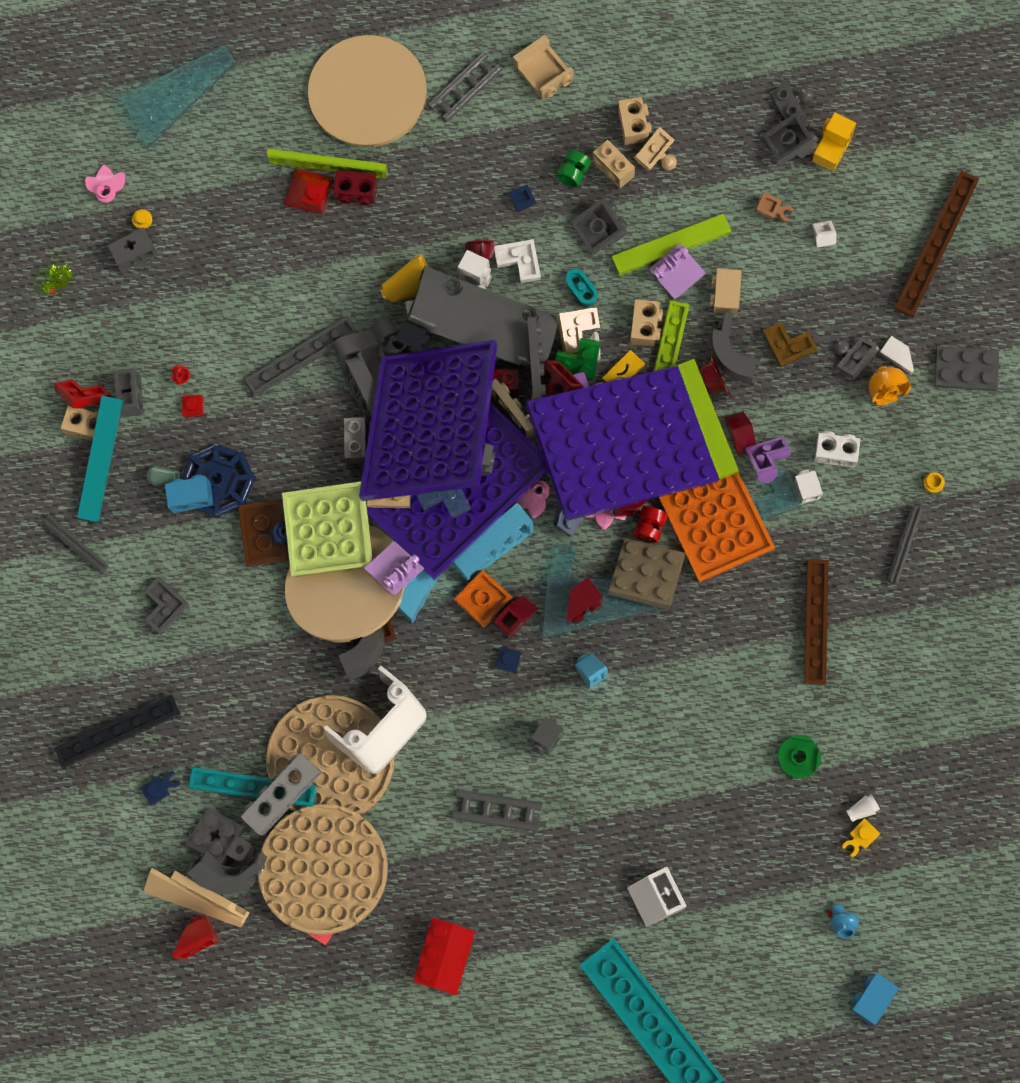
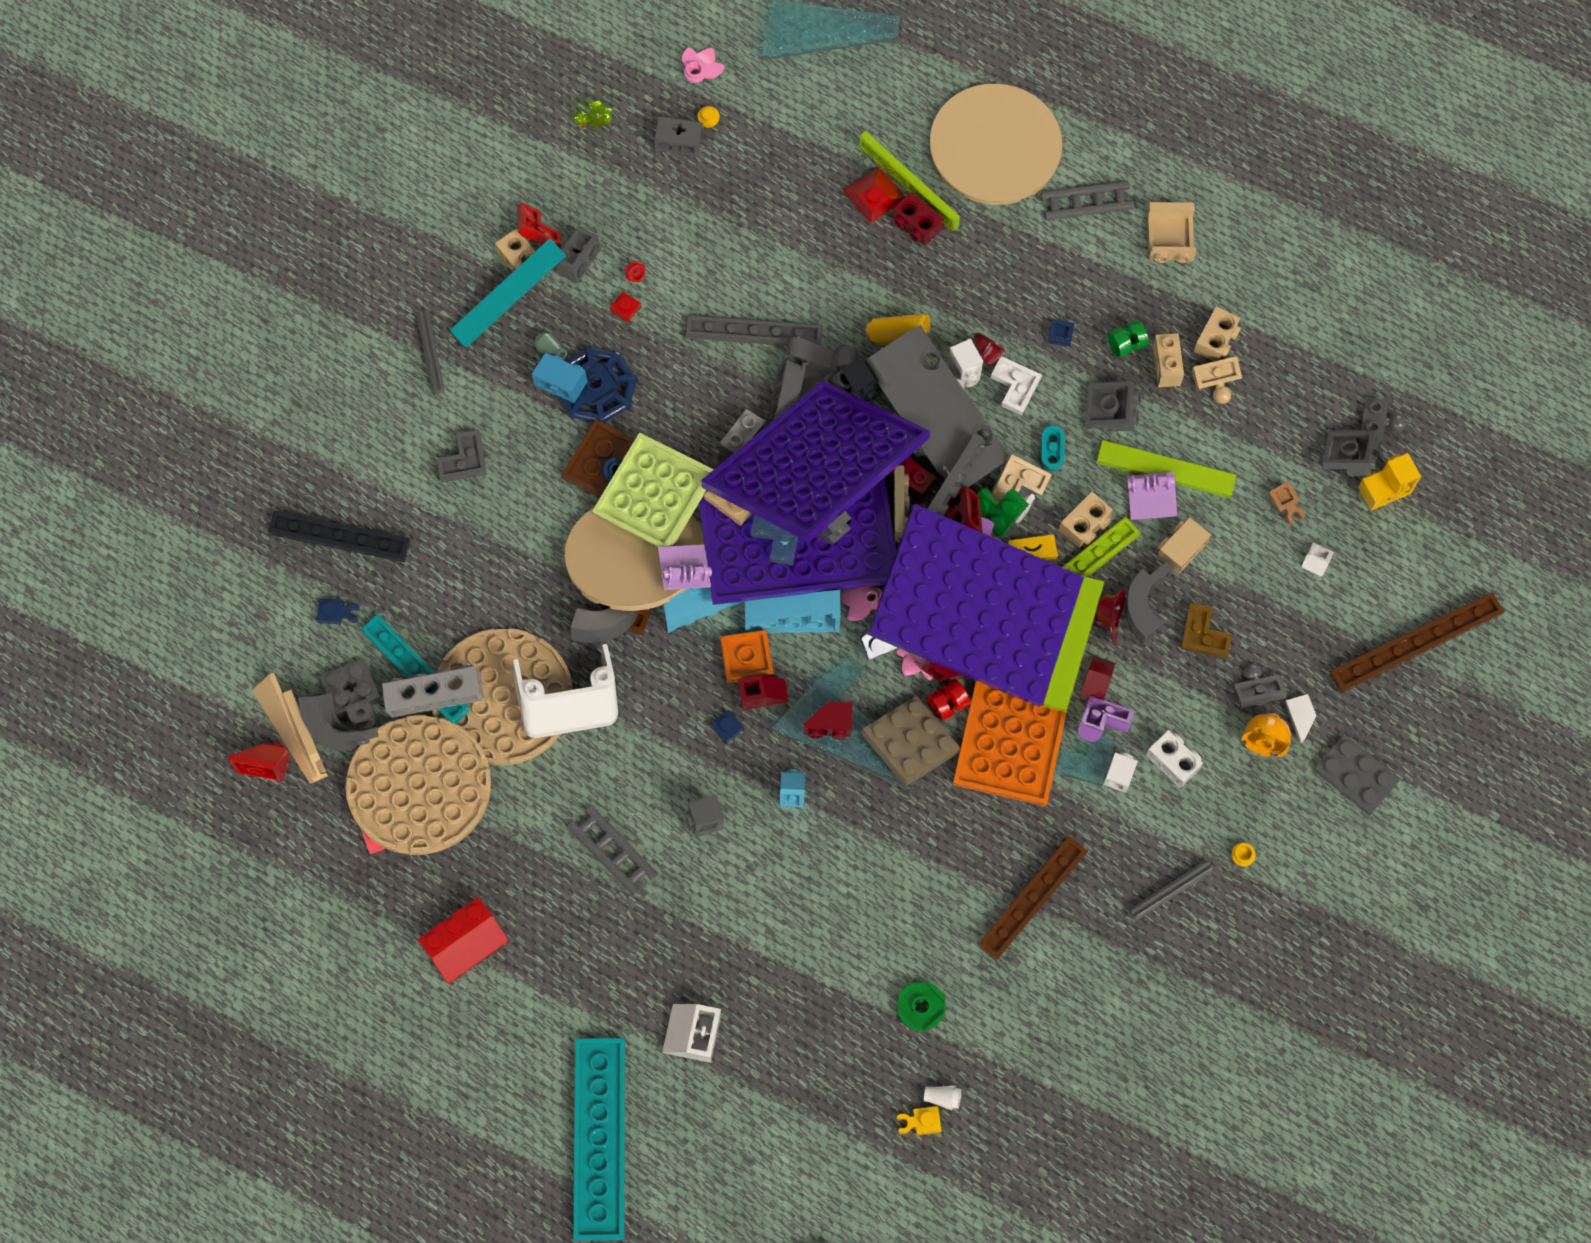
camera: 30 degrees right, 5 degrees down
(843, 922) = (844, 1183): dark azure animal -> none

